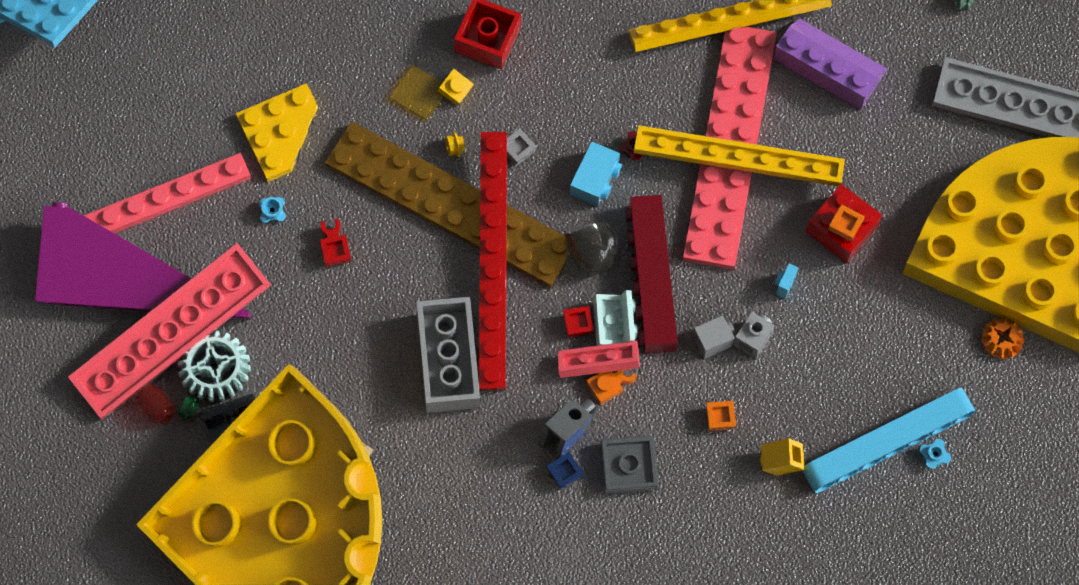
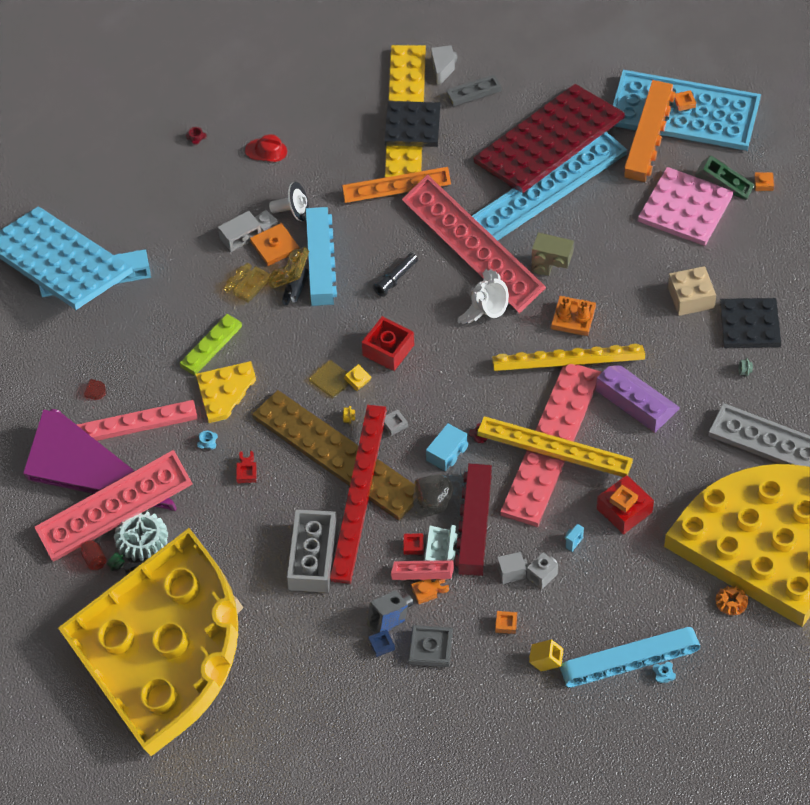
camera: 15 degrees right, 15 degrees down
(103, 156) = (95, 390): none -> clear red tile
(246, 65) = (210, 344): none -> lime plate

